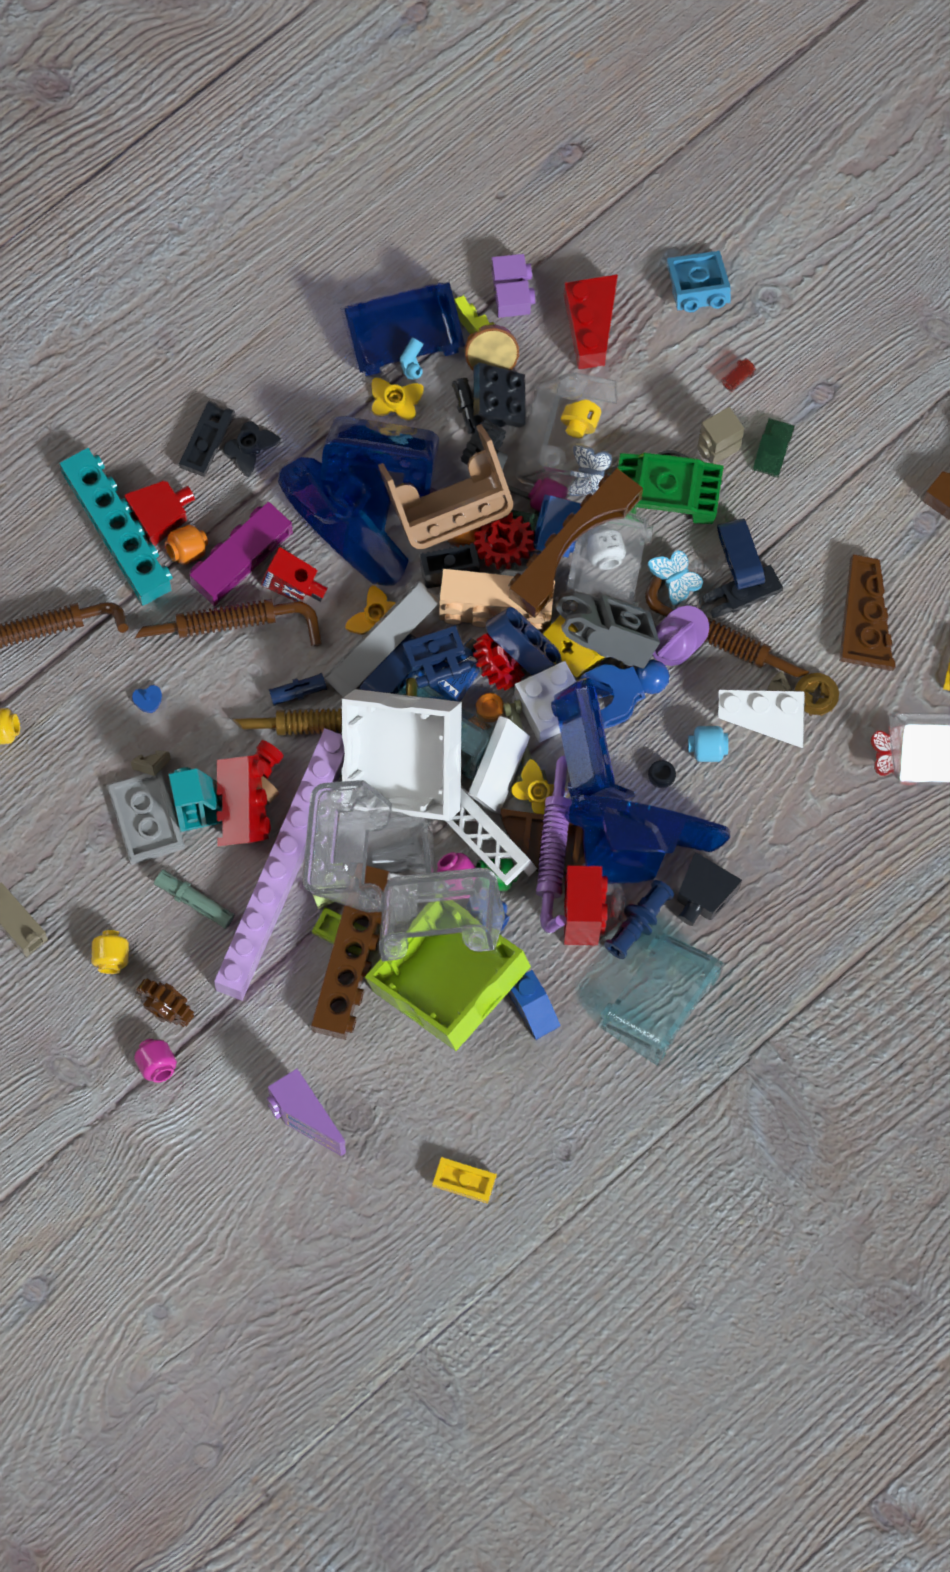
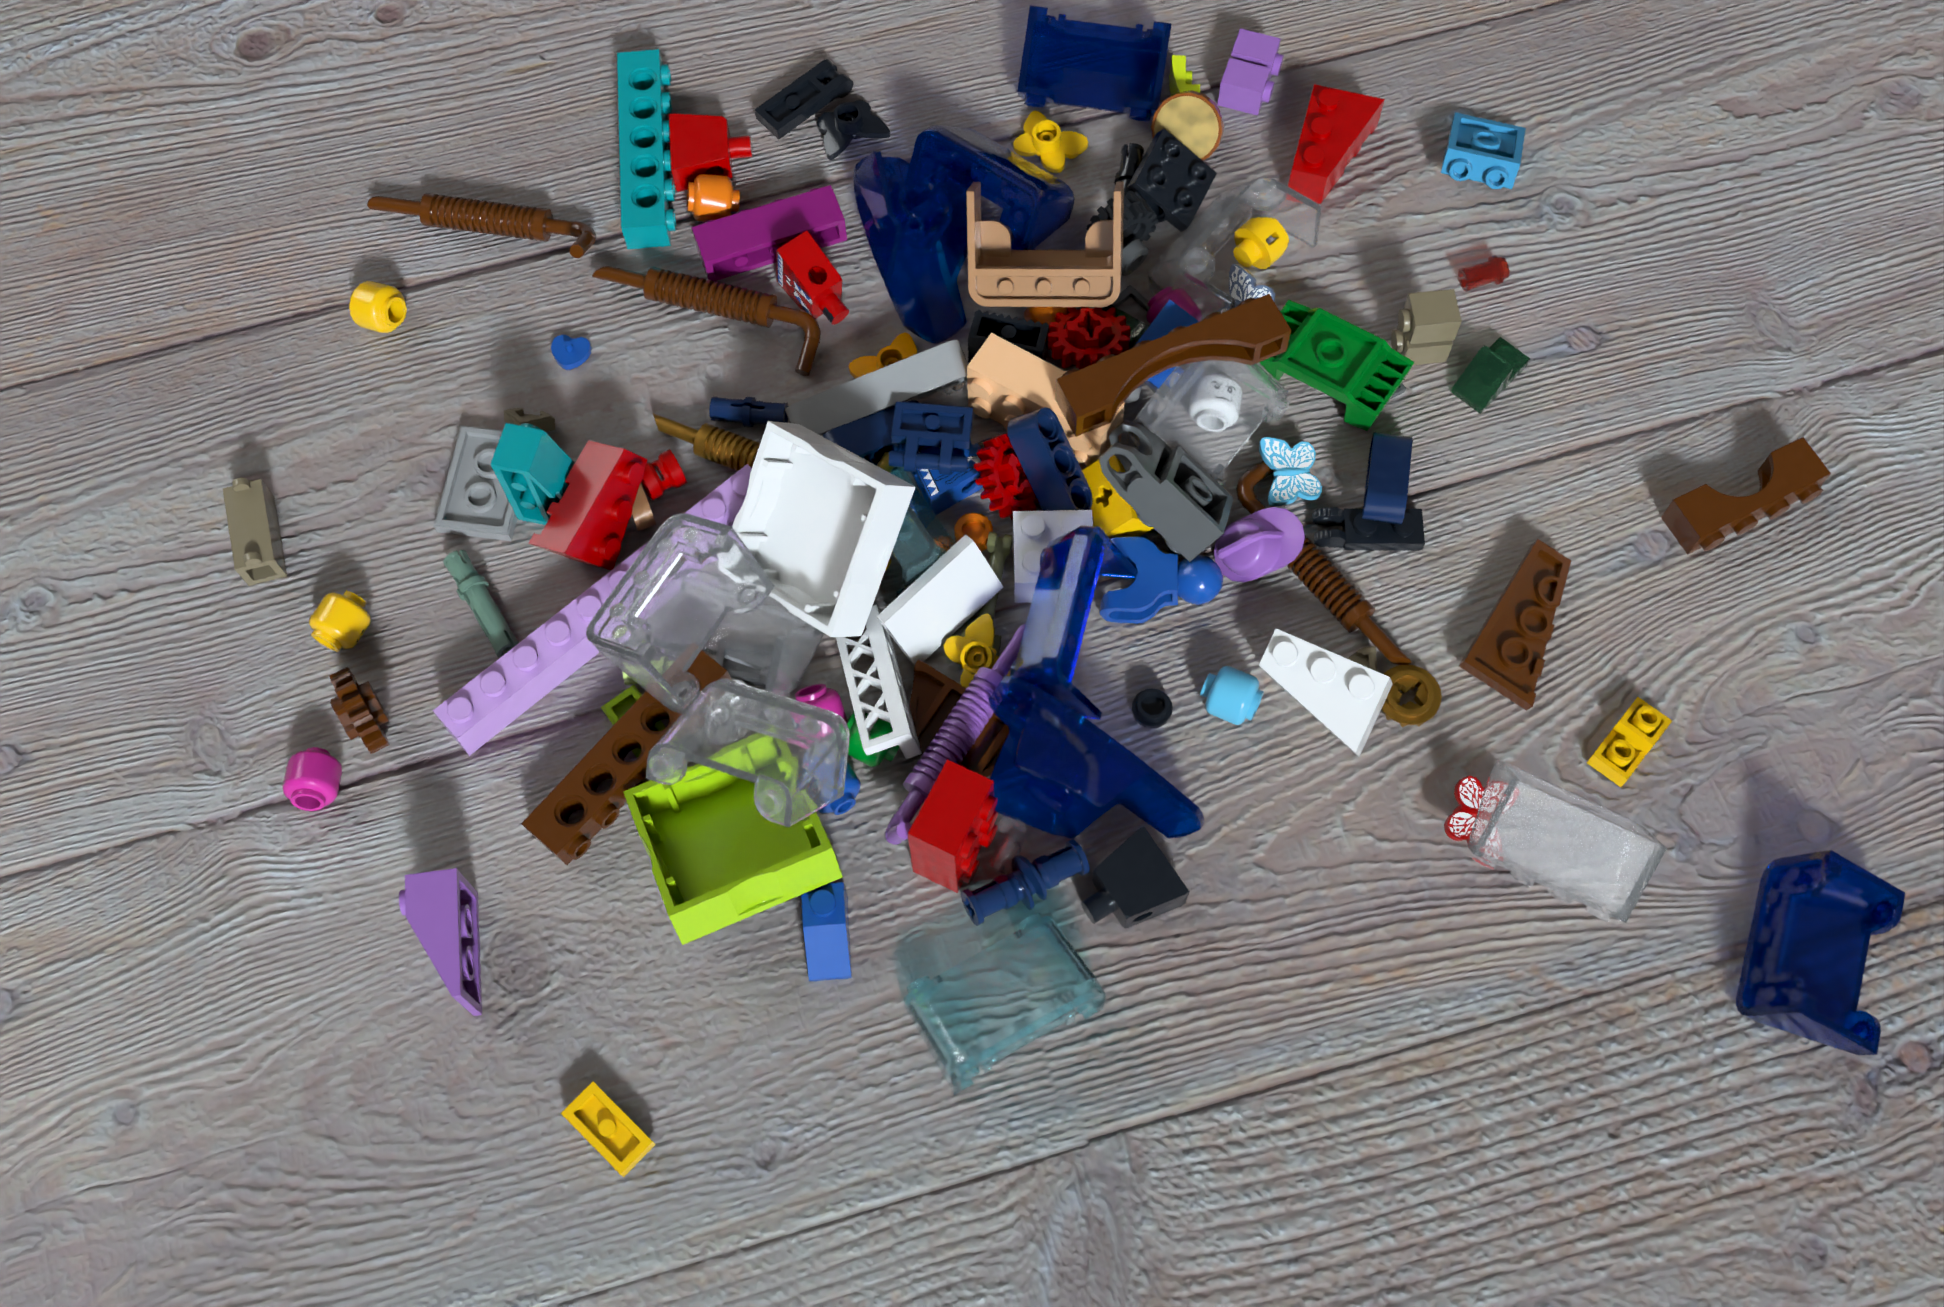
camera: 30 degrees right, 5 degrees down
(409, 361) = (1085, 105): medium azure arm -> none

